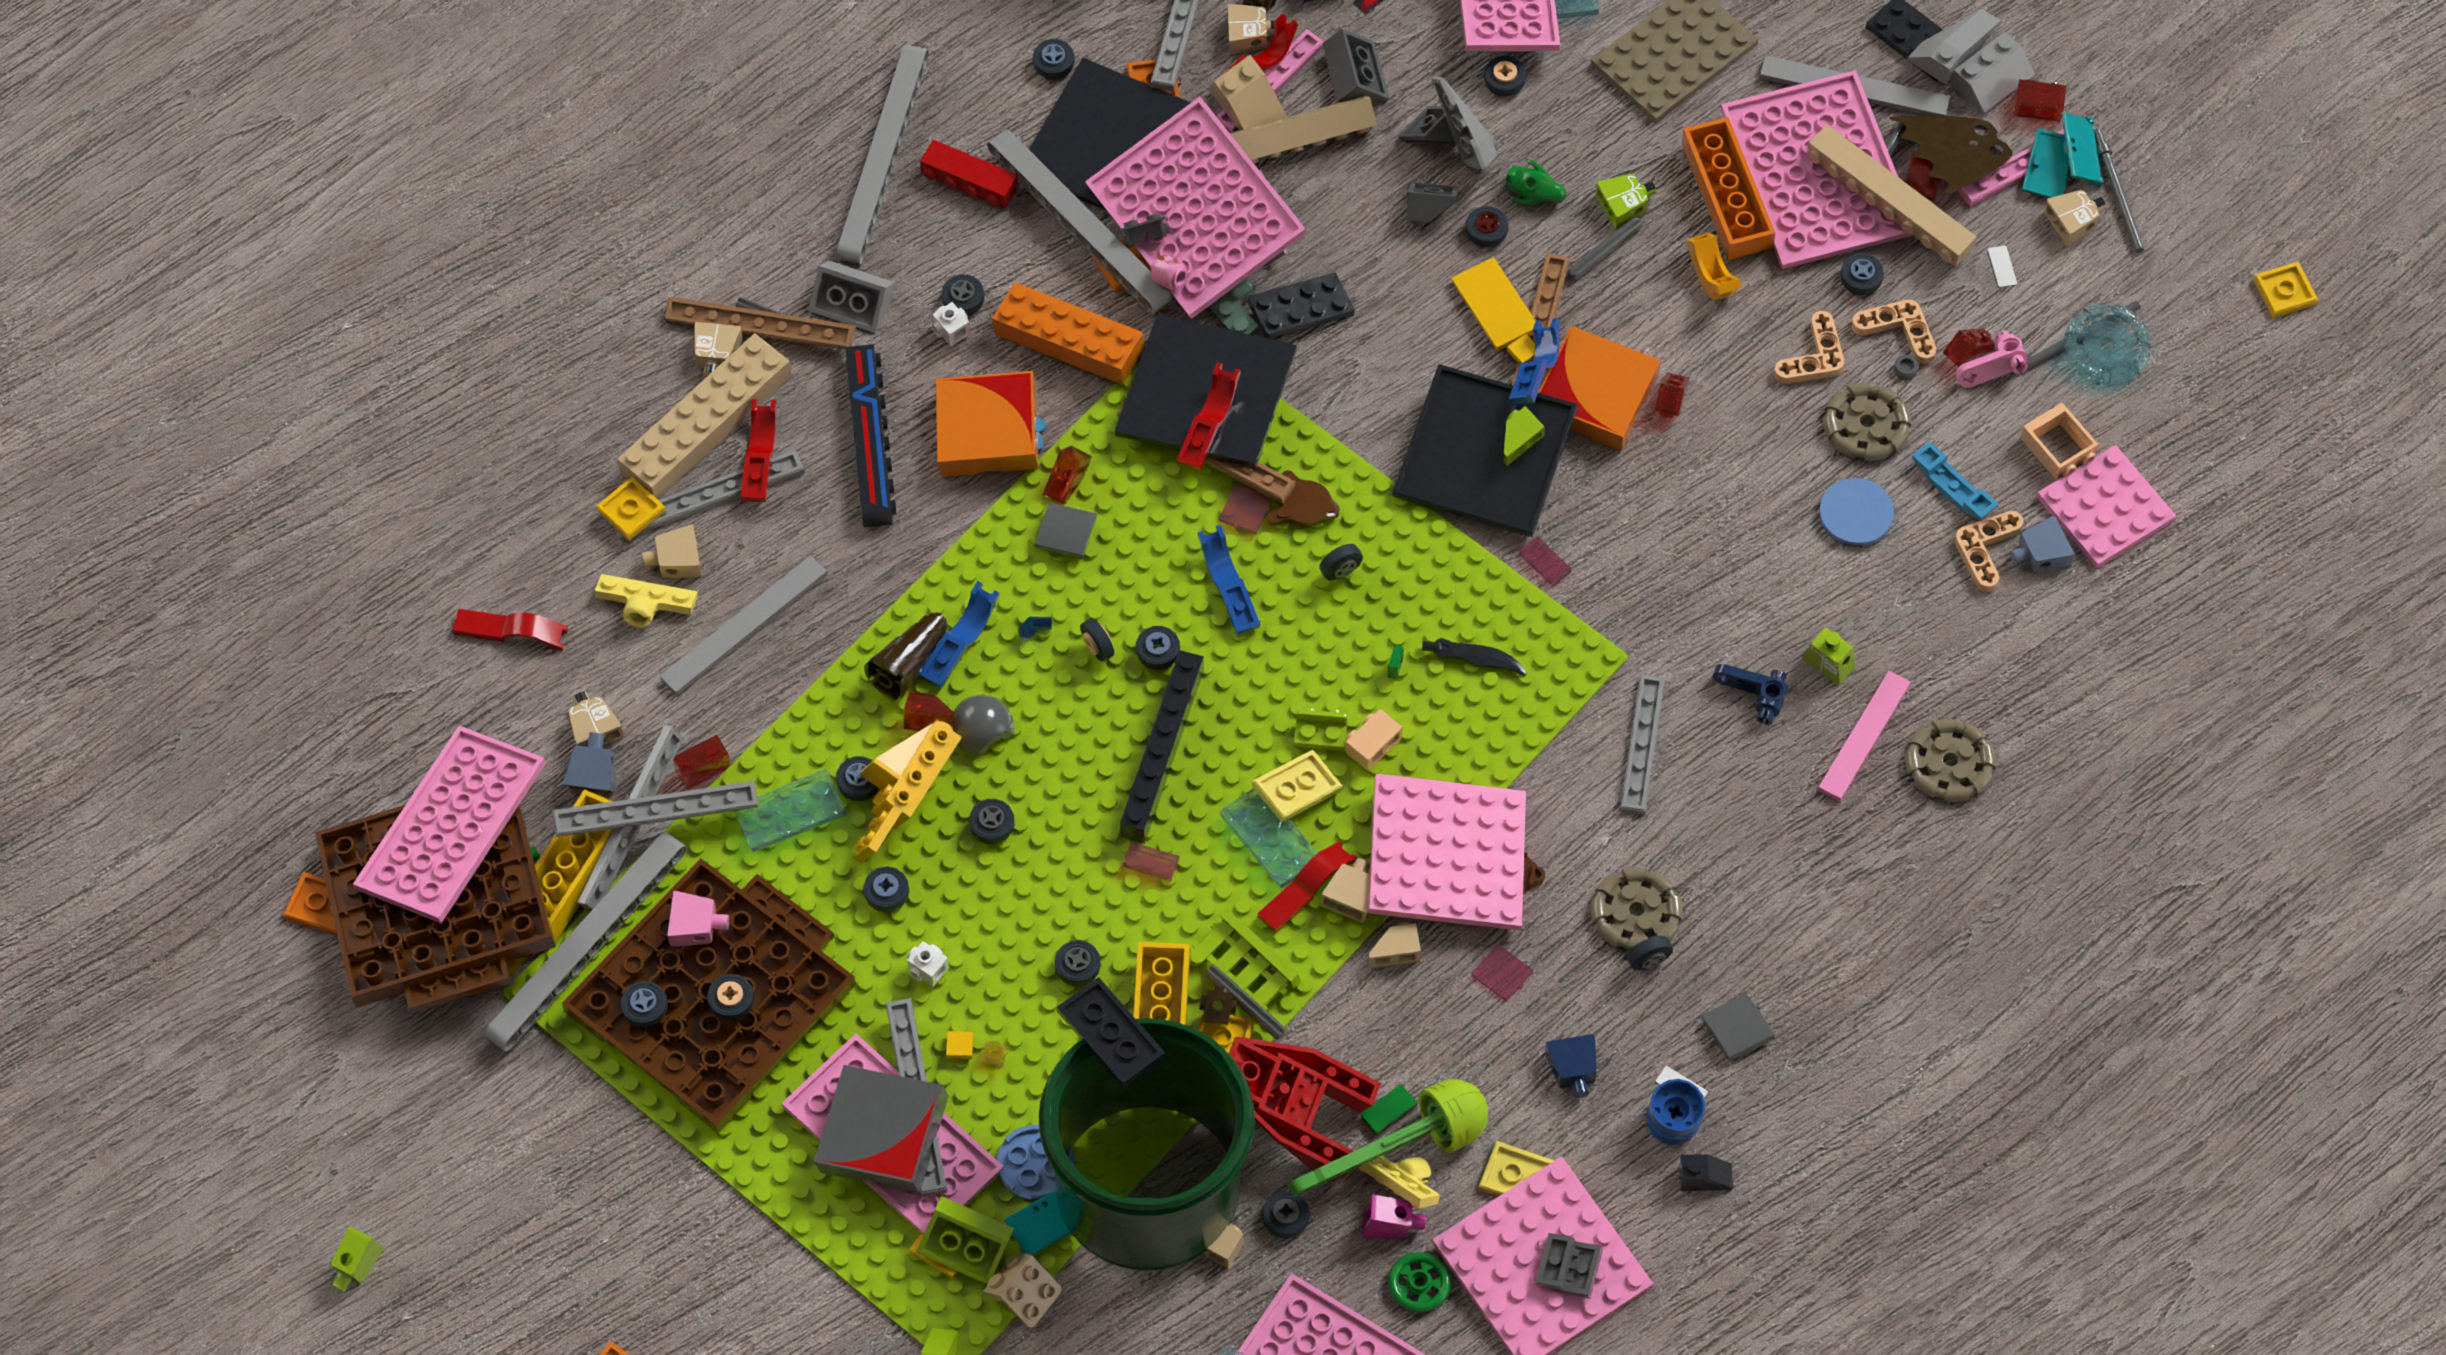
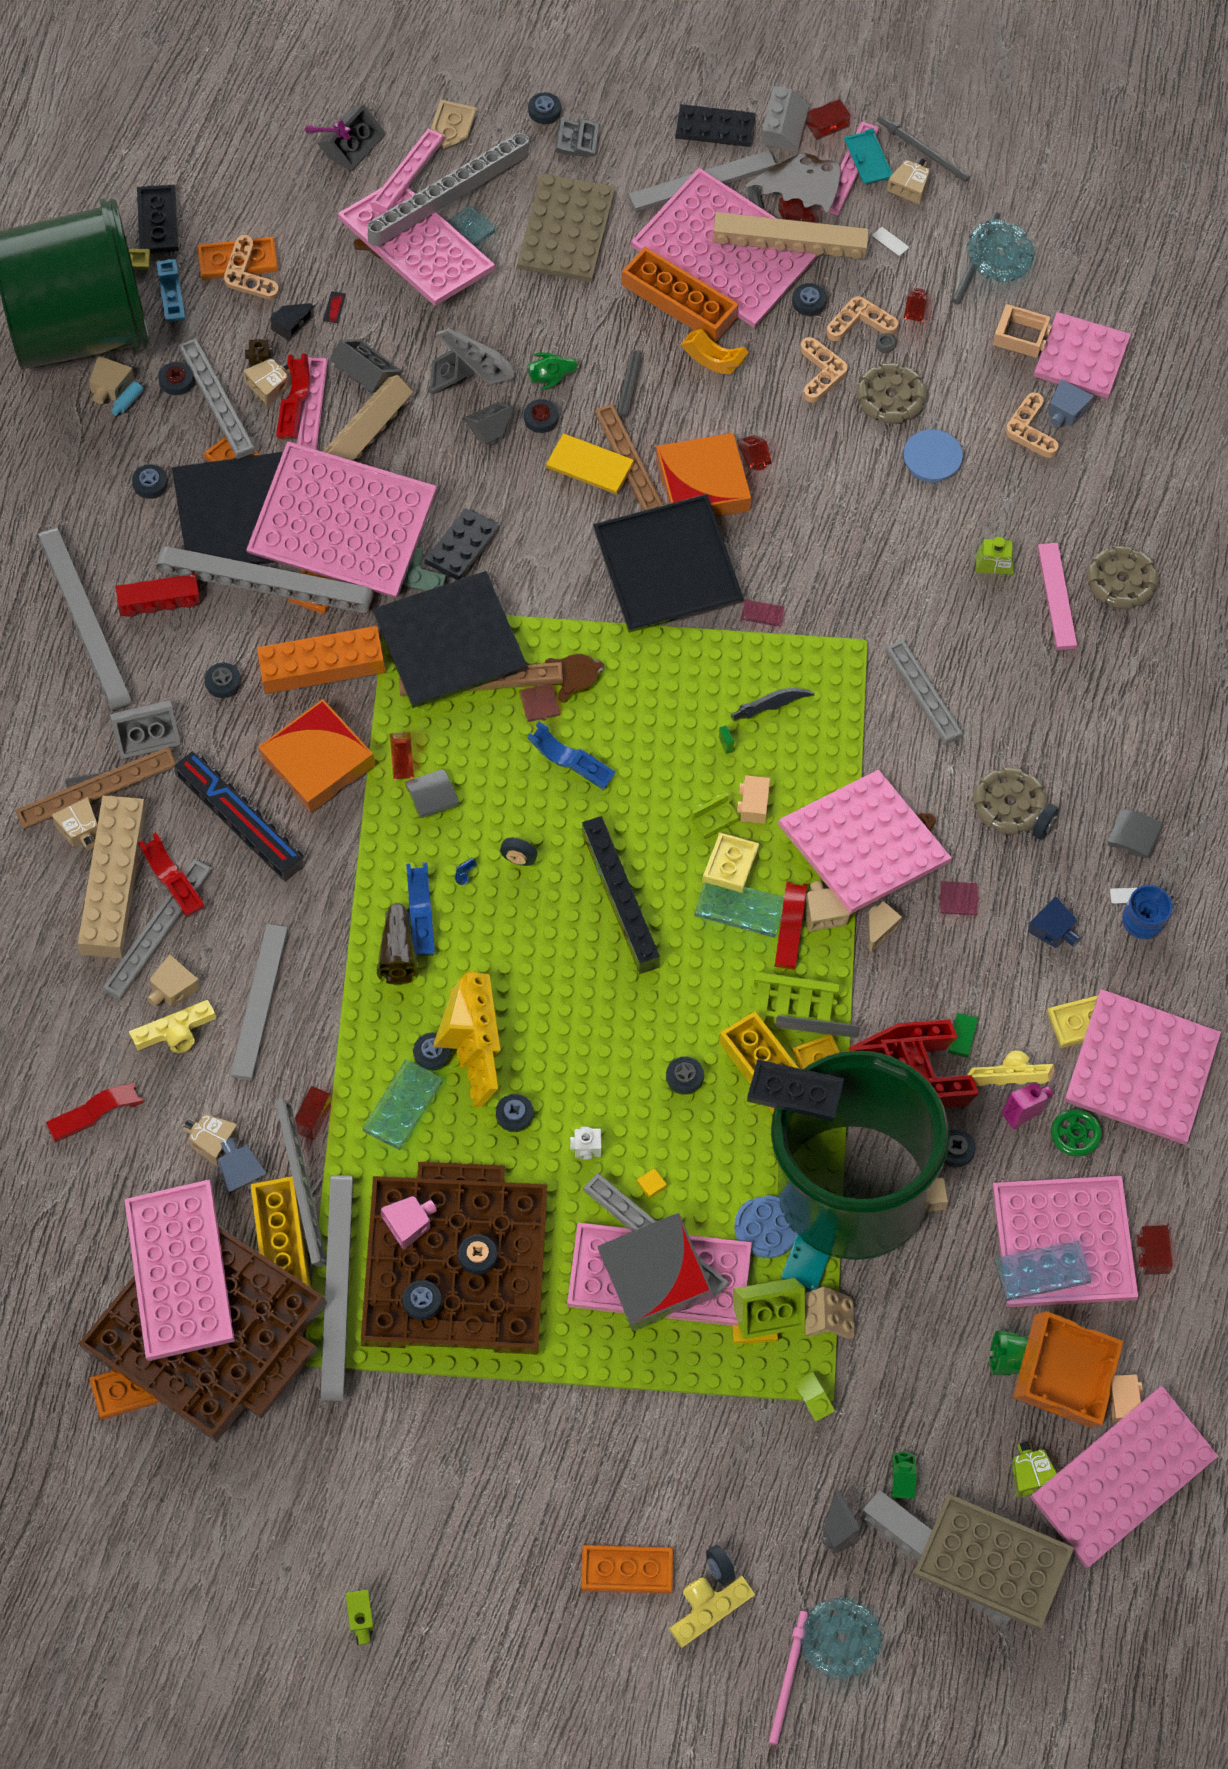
camera: 40 degrees left, 0 degrees up
(630, 508) = (112, 972): yellow tile -> none
(654, 809) = (315, 1163): light grey tile -> none
(925, 709) = (443, 975): clear red slope -> none
(951, 323) = (232, 704): white brick -> none
(981, 723) = (484, 956): dark grey cylinder -> none
(993, 812) = (545, 1012): black wheel -> none
(994, 1047) = (679, 1167): clear yellow plate -> none
(1135, 231) = (314, 561): dark grey hinge -> none
(1151, 861) = (675, 976): tile -> none
(1159, 656) = (560, 839): black wheel -> none
(1168, 272) = (361, 574): bright pink head -> none
(1209, 419) = (472, 655): red piece -> none
(1218, 1016) = (806, 1039): dark brown brick -> none
(1247, 95) = (310, 424): tan slope -> none
(1341, 562) = (637, 695): black wheel -> none
(1450, 1112) = (1011, 1012): piece -> none
(1496, 78) = (465, 315): black wheel -> none
(1521, 433) = (686, 535): lime slope -> none
(1522, 349) = (635, 482): yellow tile -> none
(1531, 373) = (659, 482): blue piece -> none
(1569, 1265) = (1165, 1055): dark grey slope -> none
(1624, 198) = (615, 343): lime torso -> none
(1704, 1173) = (1192, 941): black slope -> none
(1757, 684) = (967, 605): dark blue piece -> none
(1951, 484) = (979, 401): dark azure slope -> none
(1953, 45) = (746, 115): light grey wedge -> none
(2007, 359) = (947, 297): bright pink piece -> none
(2081, 148) = (881, 134): teal door -> none
(2285, 289) = (1076, 150): yellow tile -> none

